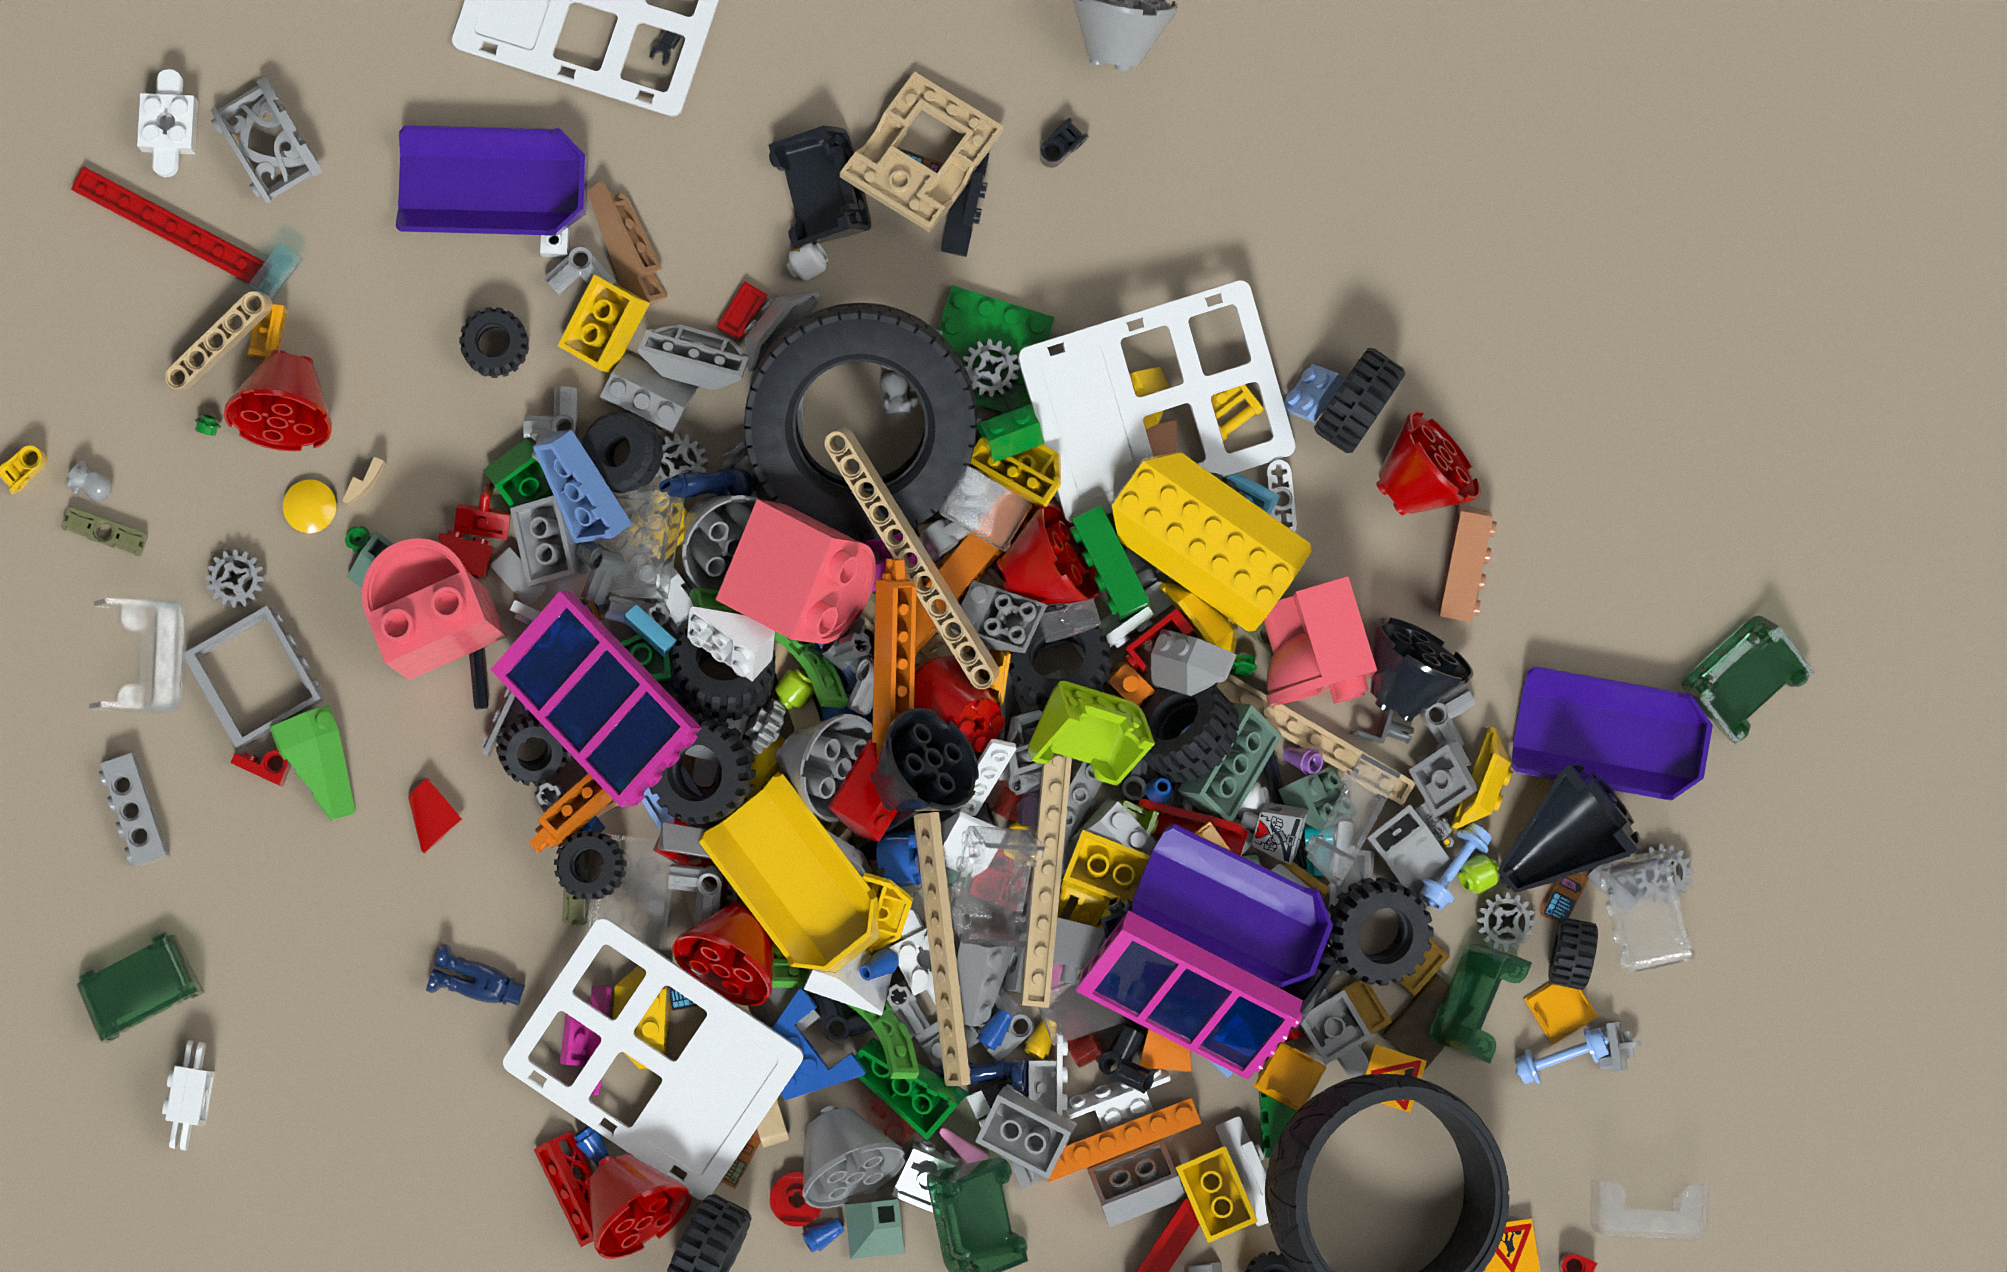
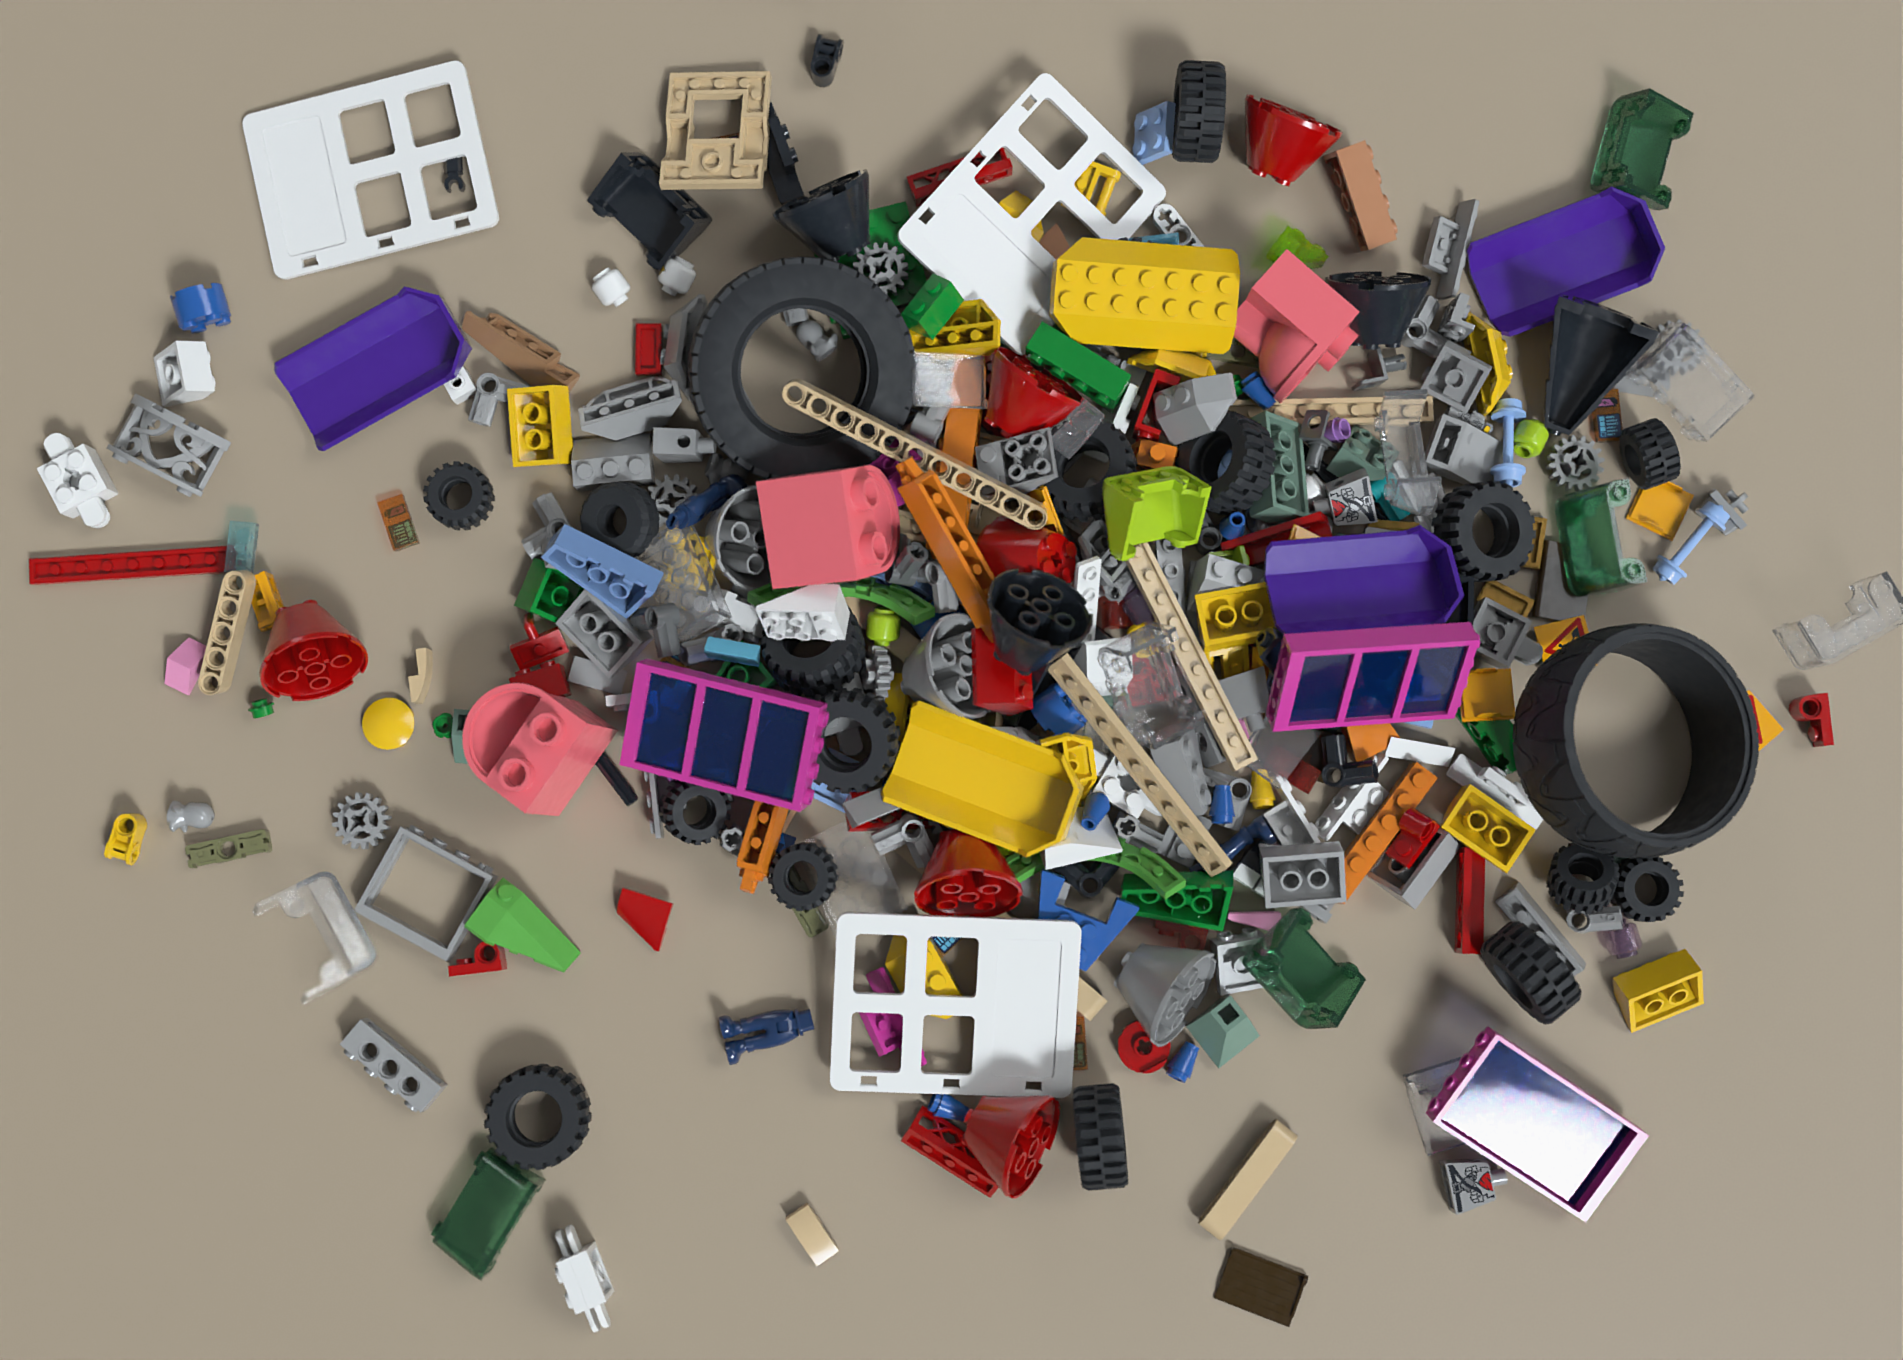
camera: 30 degrees left, 0 degrees up
(164, 346) = (185, 666): none -> bright pink slope
(197, 921) = (508, 1137): none -> black tyre
(318, 82) = (184, 372): none -> white slope
(368, 33) = (199, 307): none -> blue brick
(406, 1181) = (812, 1234): none -> tan slope
(426, 332) = (398, 522): none -> clear orange tile
(710, 412) = (672, 443): none -> light grey torso
(742, 235) = (610, 287): none -> white head
(973, 294) = (832, 218): none -> black cone
(1079, 322) = (986, 175): none -> red fence
(1147, 1162) = (1414, 836): none -> red plate
(1202, 1092) = (1419, 751): none -> white sticker
(1257, 679) = (1258, 391): none -> blue cone
(1283, 755) = (1315, 439): none -> dark grey bracket
(1373, 577) = (1294, 240): none -> clear neon green slope
(1477, 724) = (1452, 322): none -> light grey bracket
(1516, 656) = (1449, 246): none -> light grey bracket

